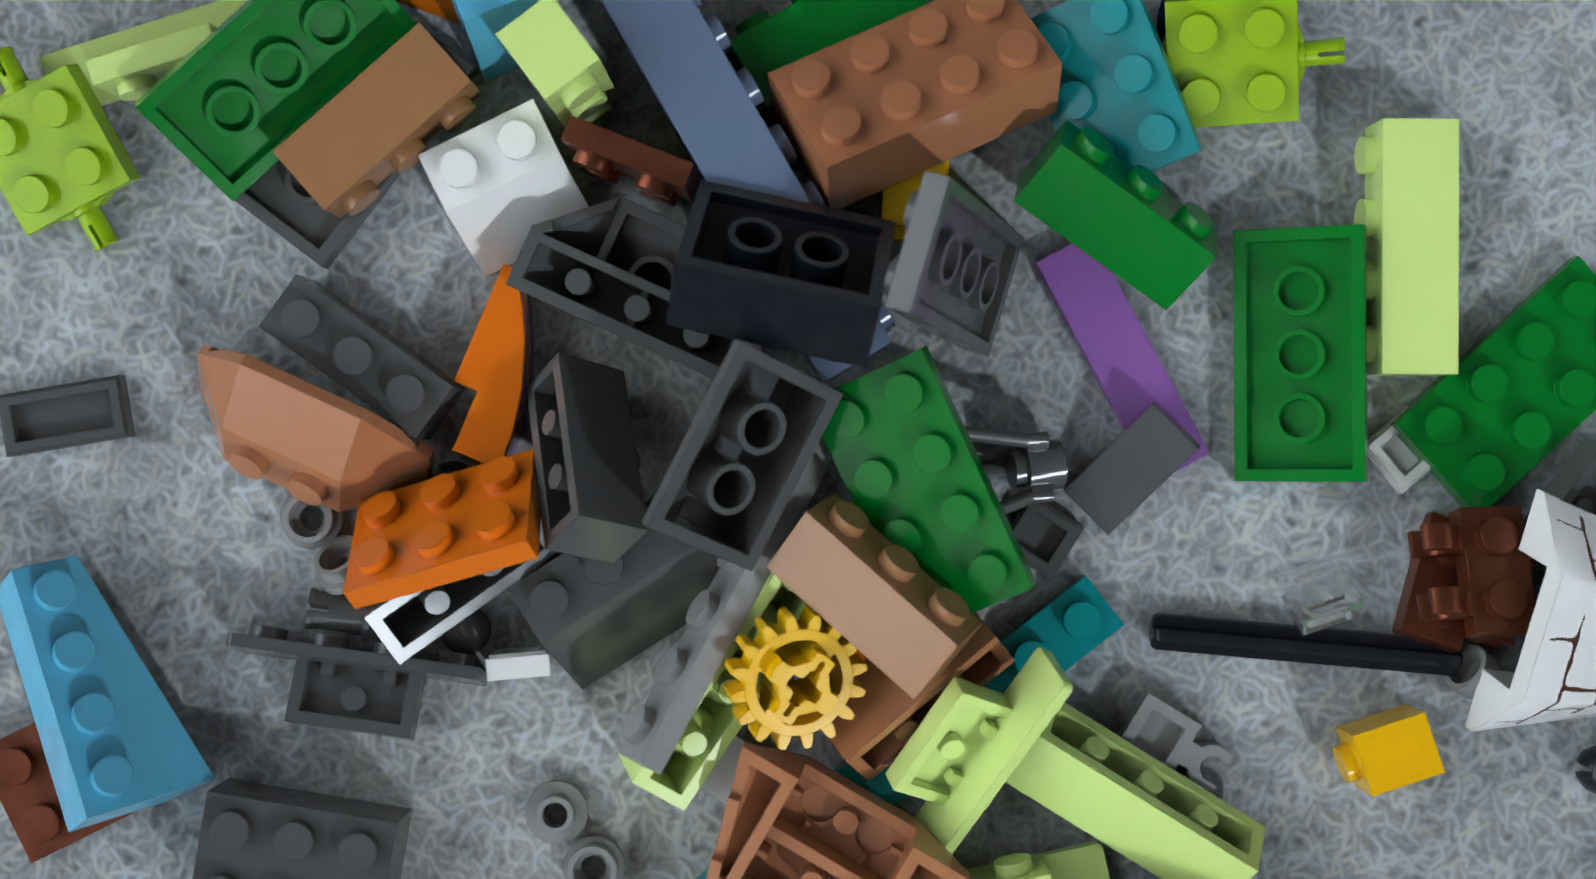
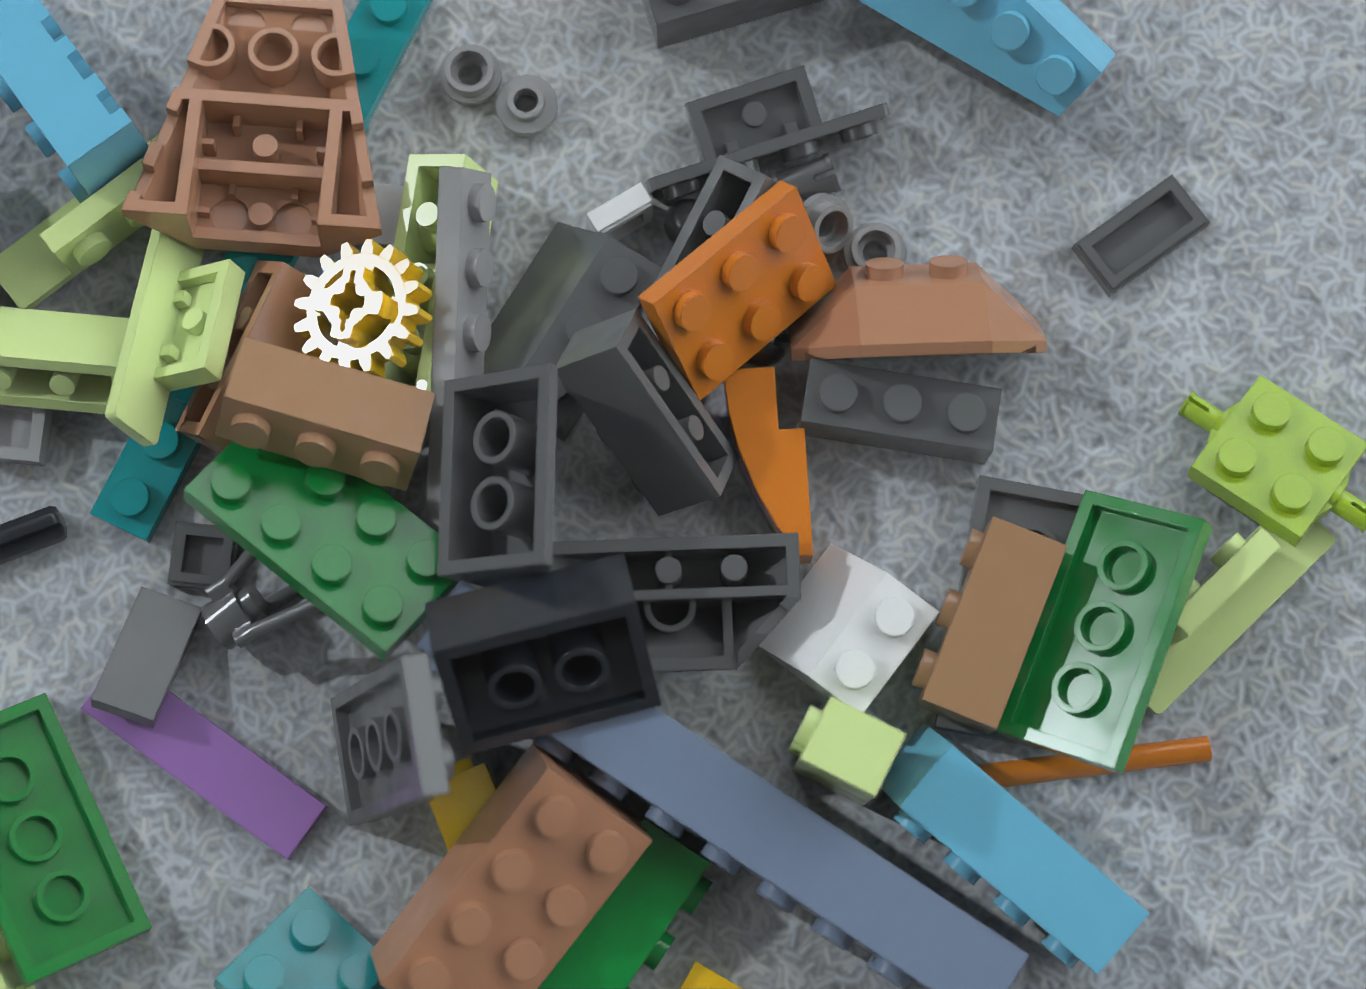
camera: 155 degrees right, 10 degrees down
(611, 155) = (769, 700): copper plate -> none
(1117, 214) = (267, 880): green brick -> none

